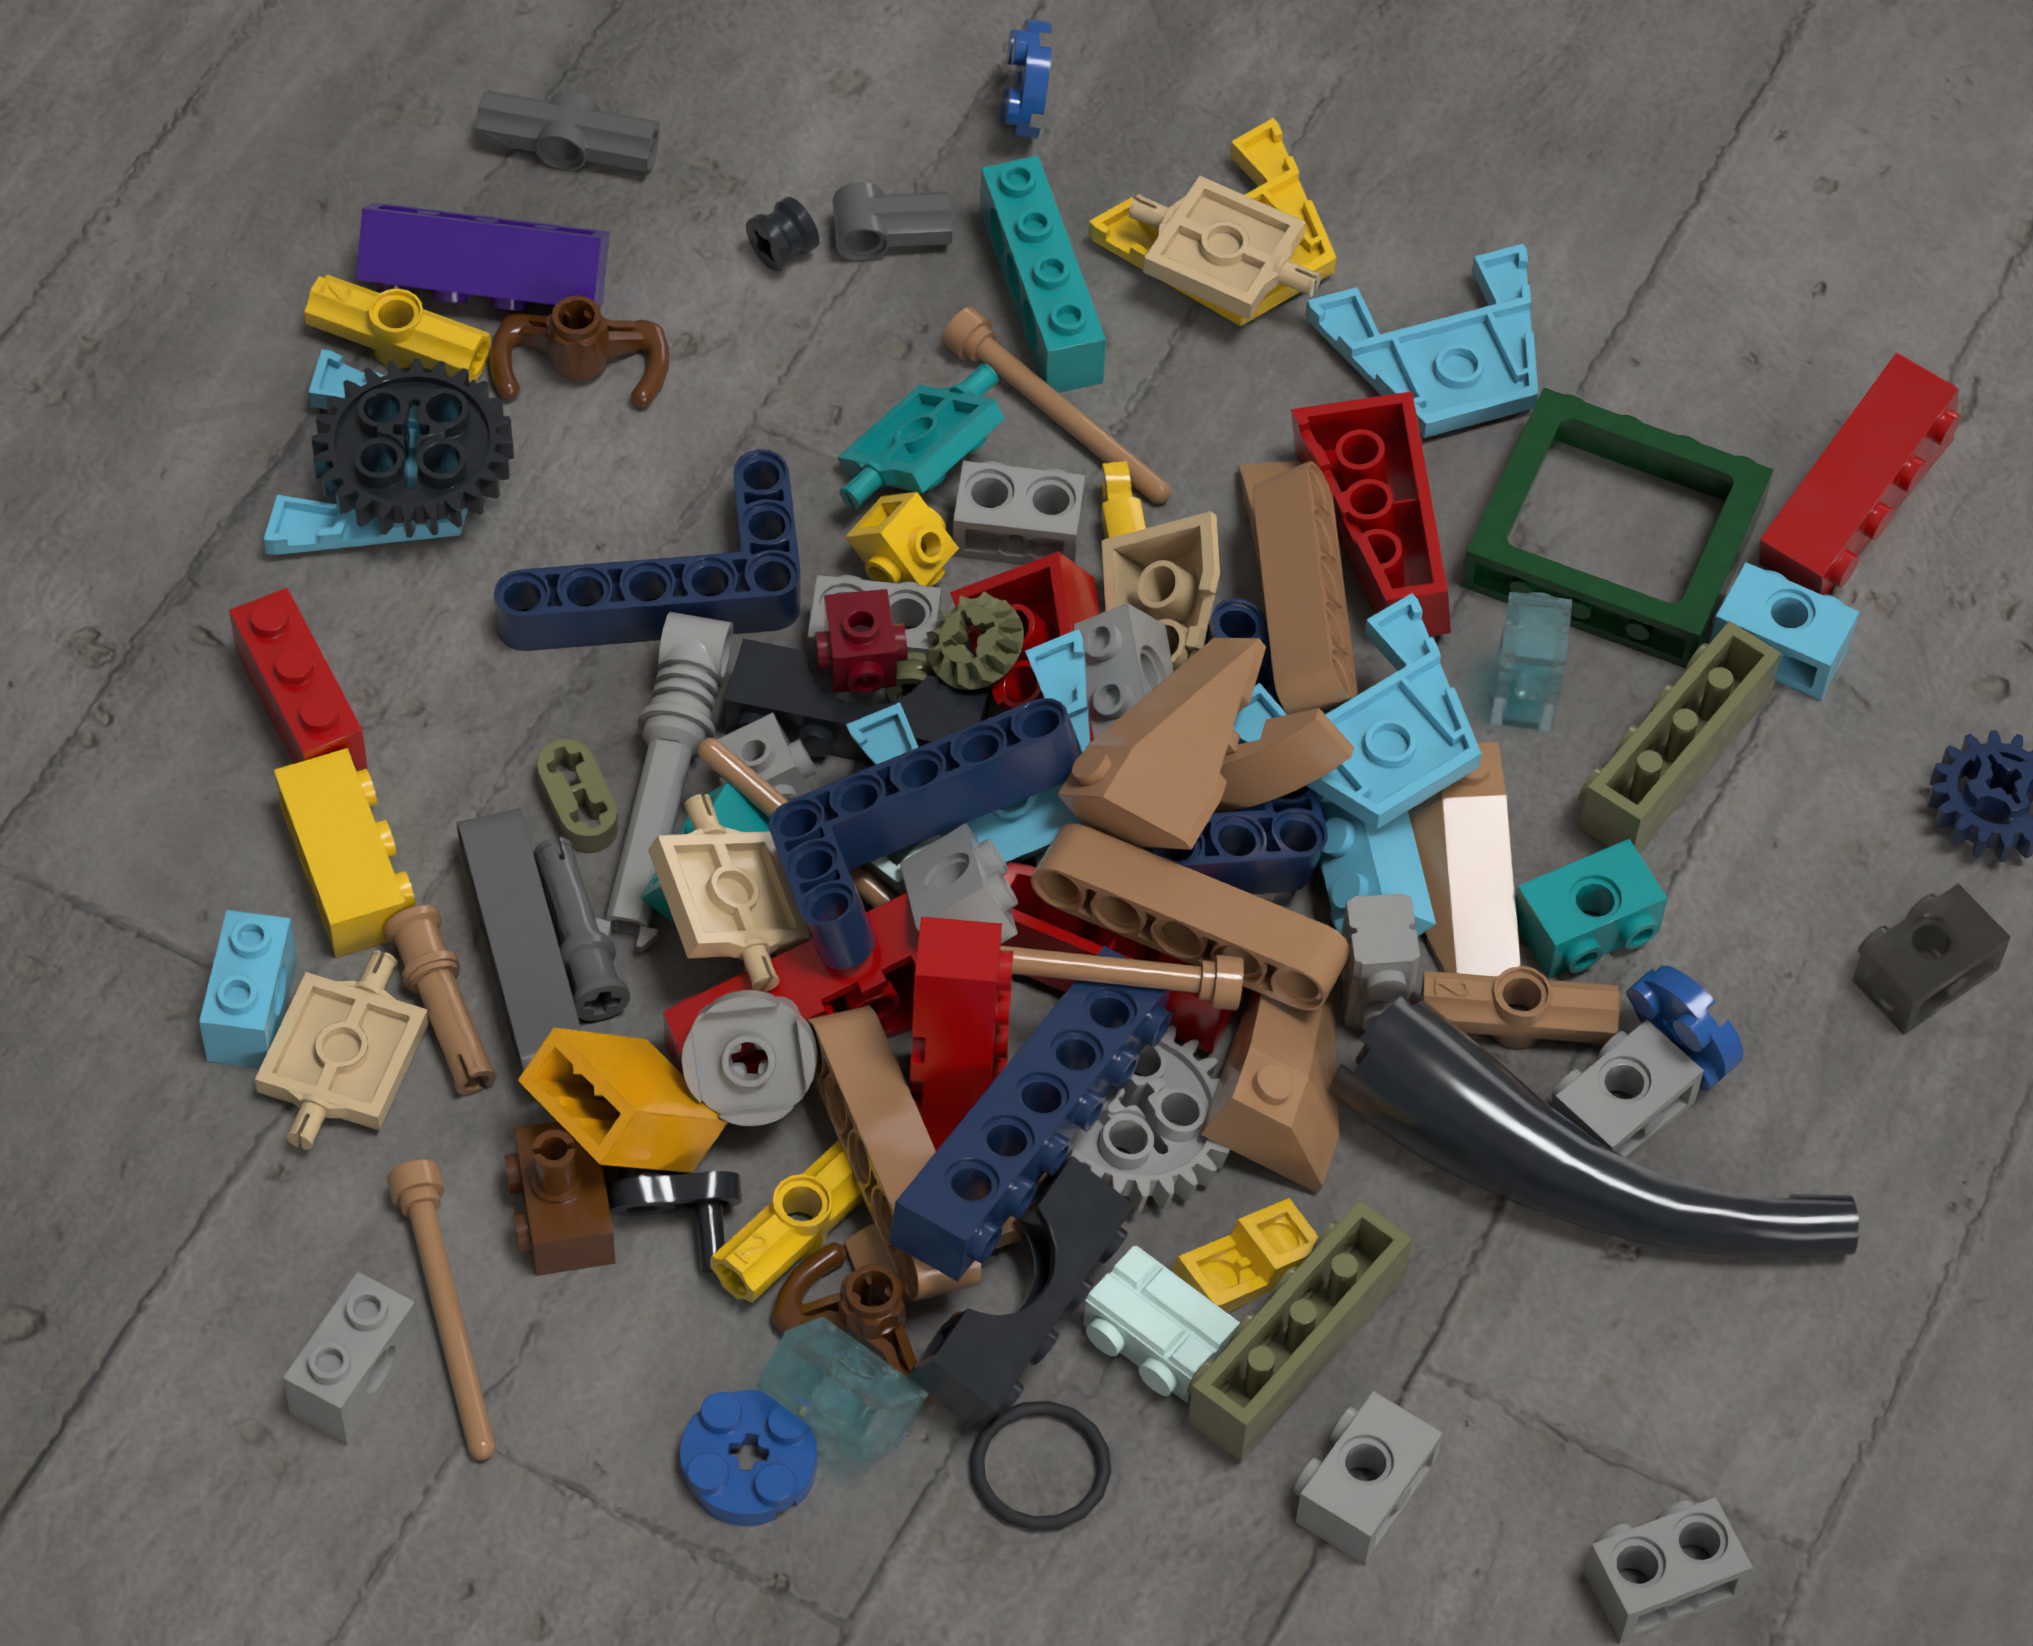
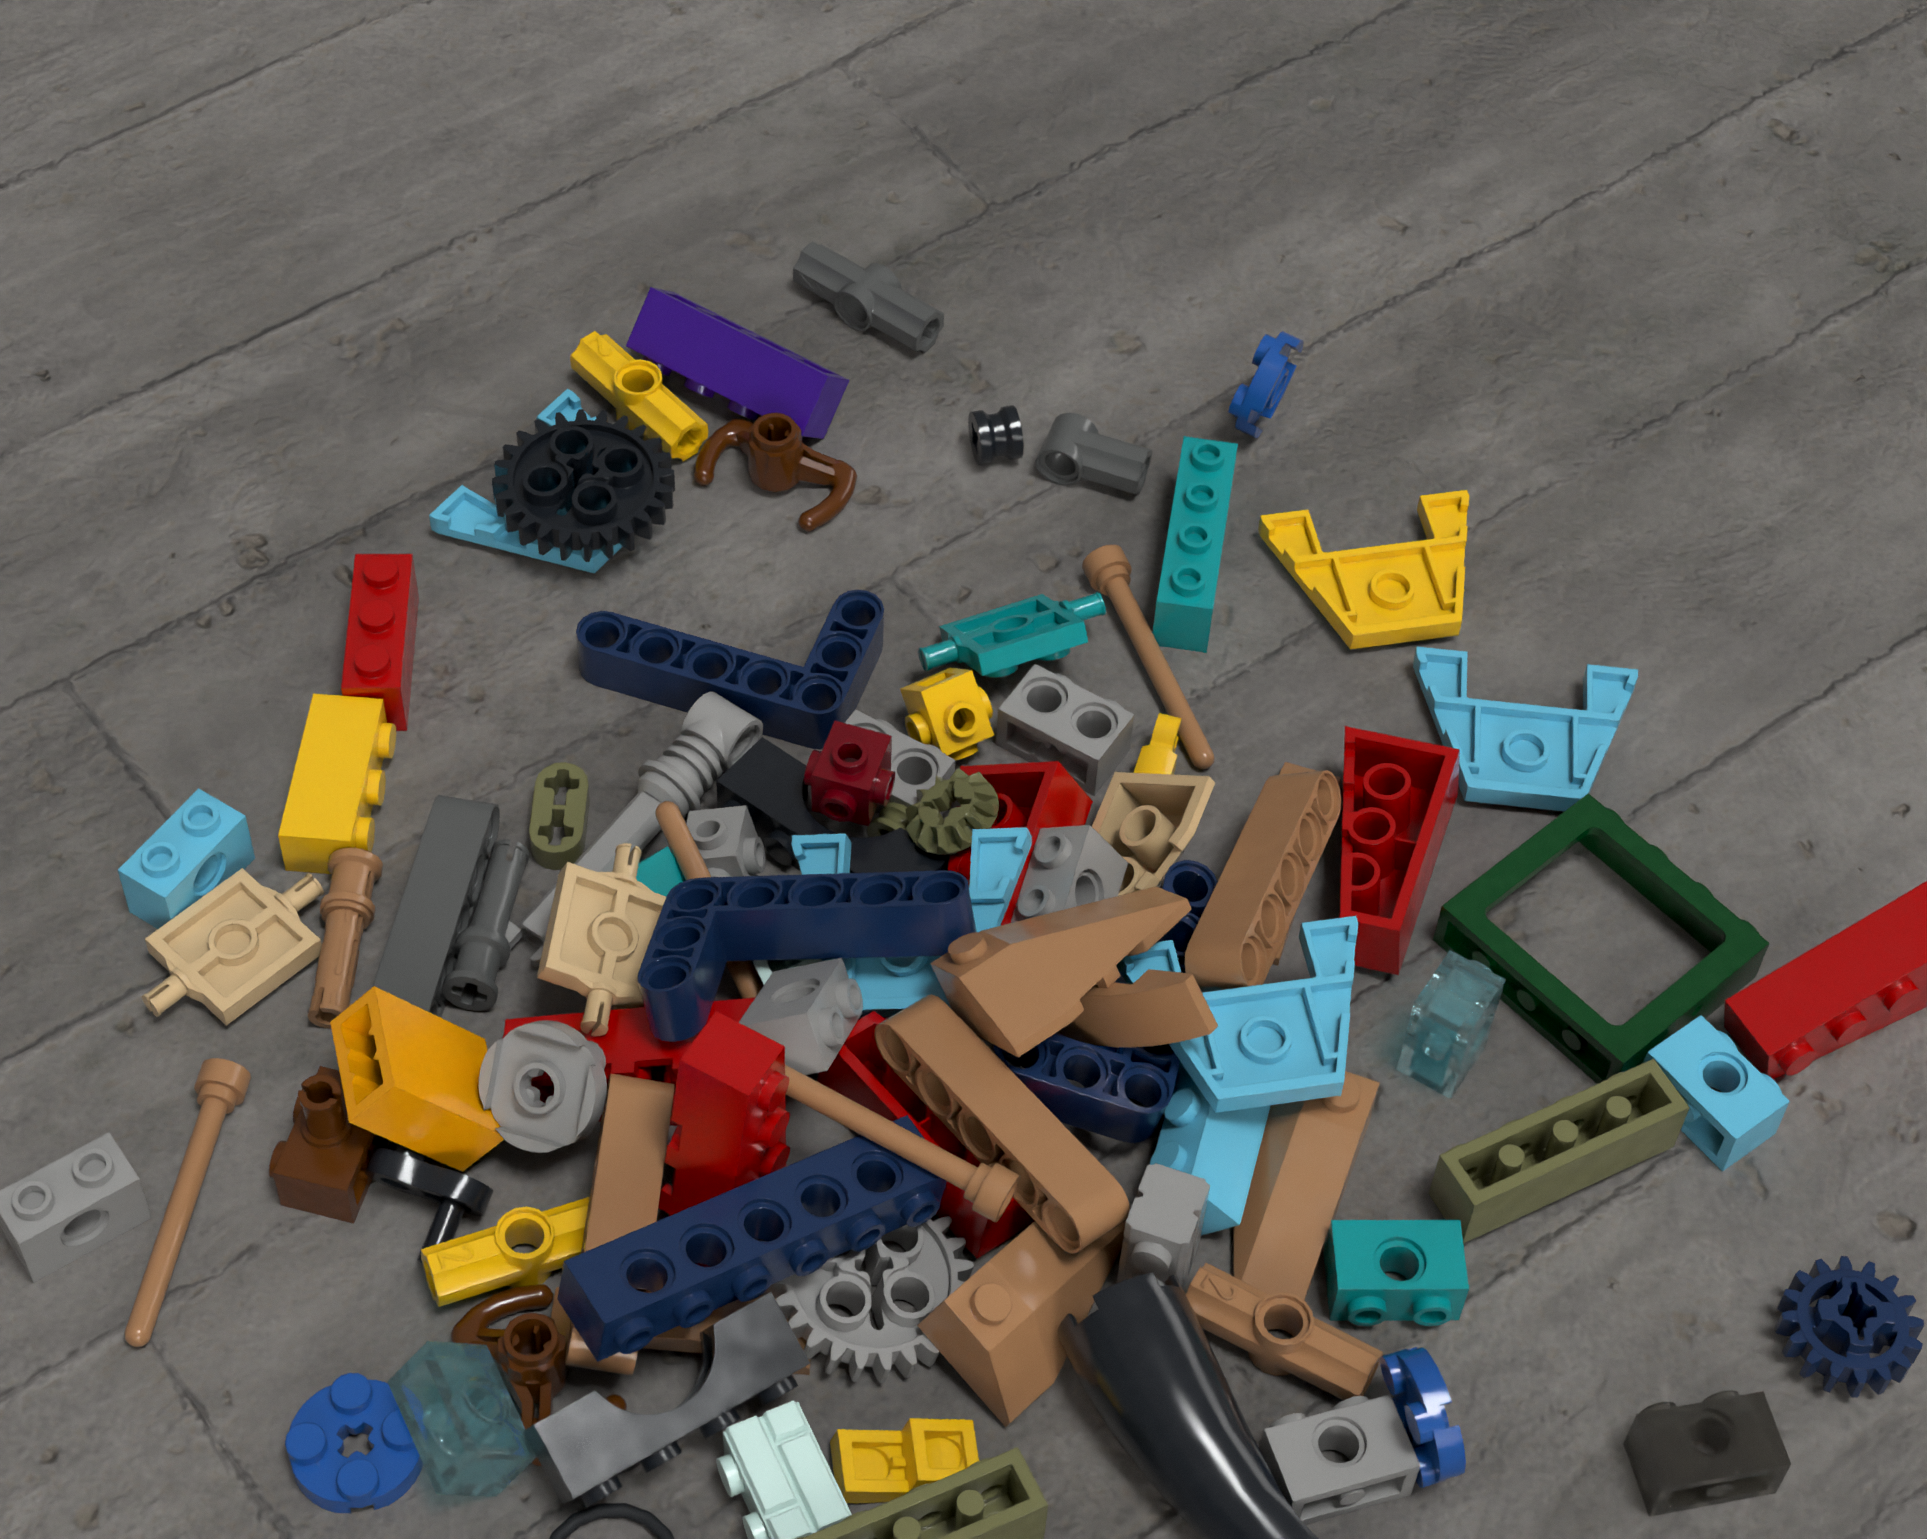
camera: 25 degrees right, 5 degrees down
(1224, 247) = (1361, 574): tan plate -> none

